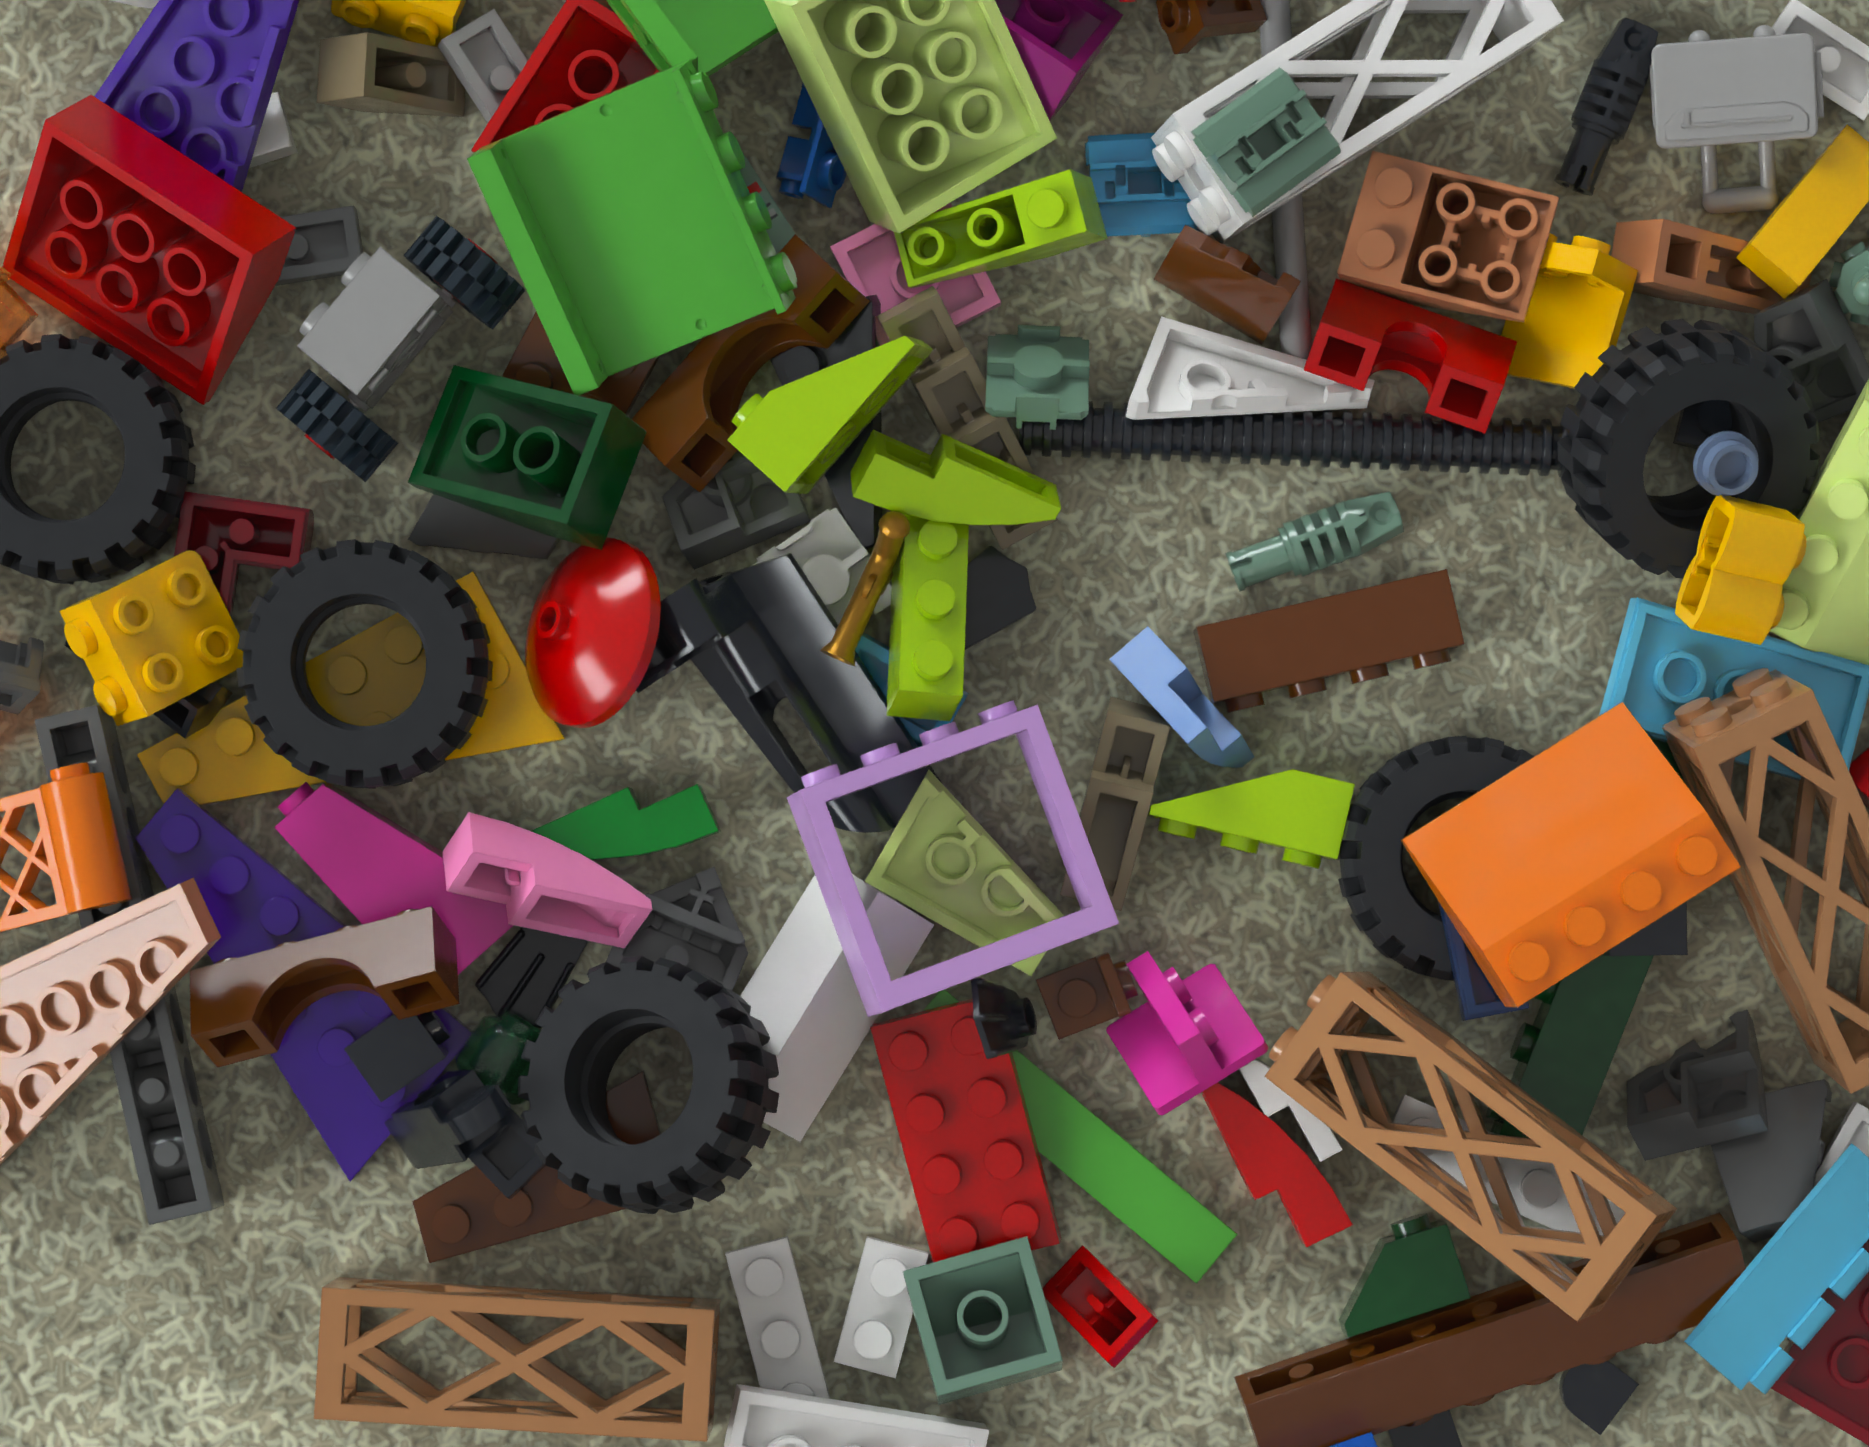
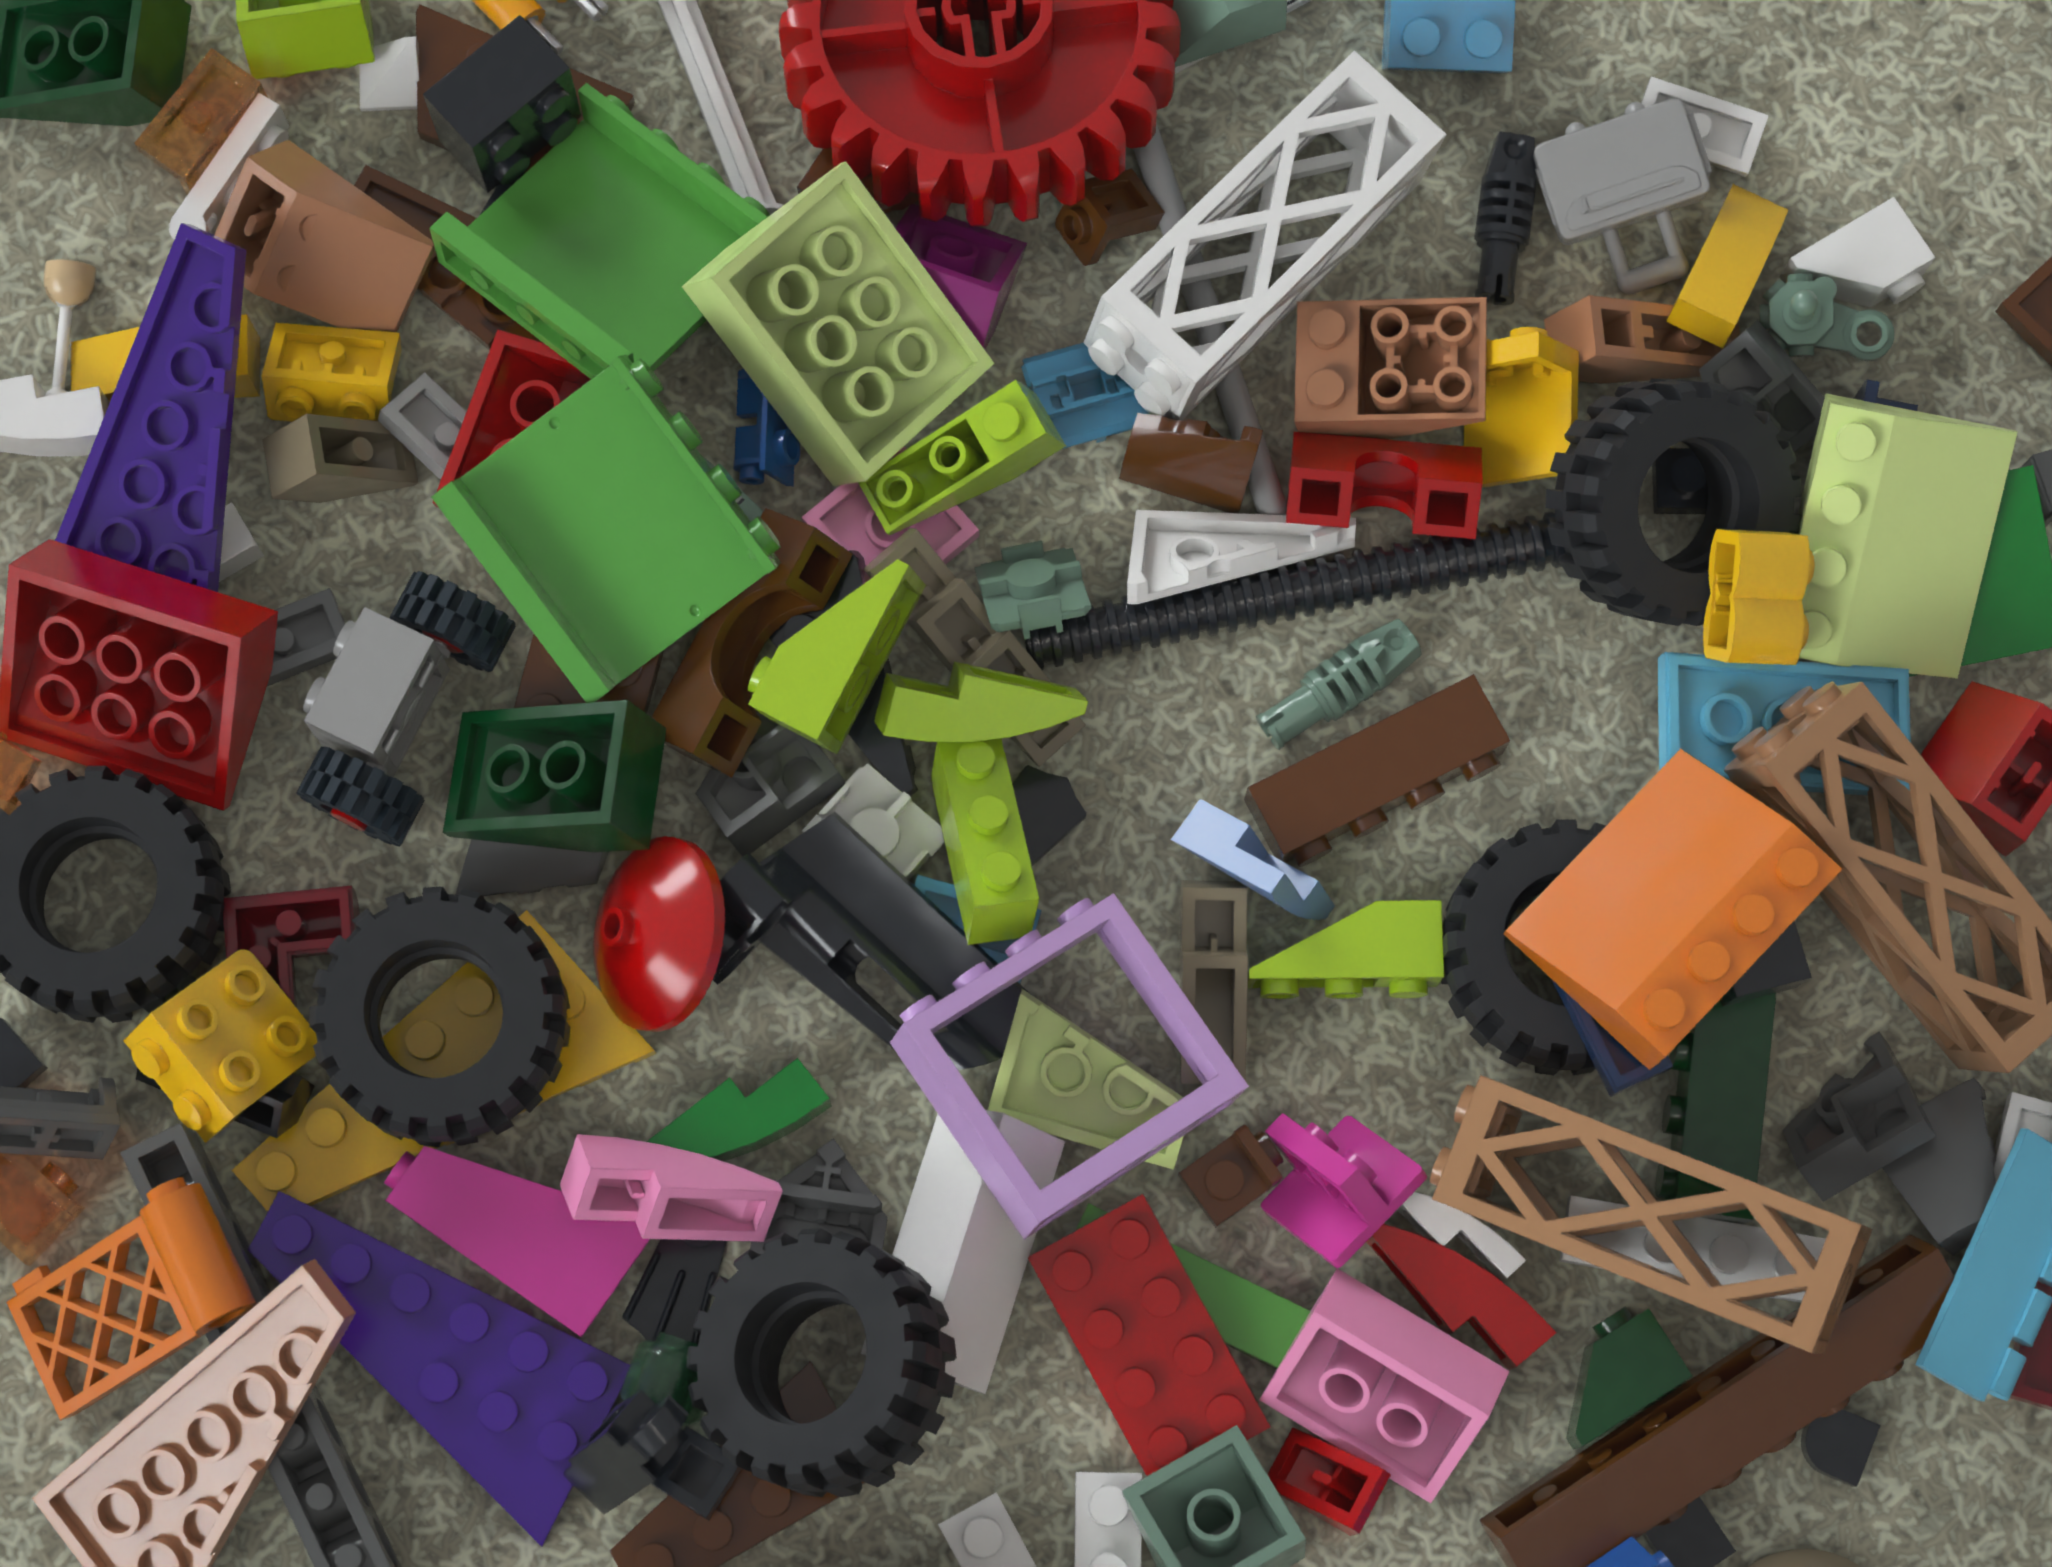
camera: 20 degrees left, 10 degrees down
(251, 1000) = (401, 1379): reddish brown arch -> none
(398, 1051) = (561, 1392): black brick -> none
(871, 586) = (921, 824): pearl gold piece -> none
(1001, 1018) = (1158, 1214): black piece -> none
(1177, 1233) = (1385, 1385): none -> bright pink slope
(1266, 142) = (1197, 300): sand green piece -> none
(1726, 463) = (1716, 498): sand blue plate -> none

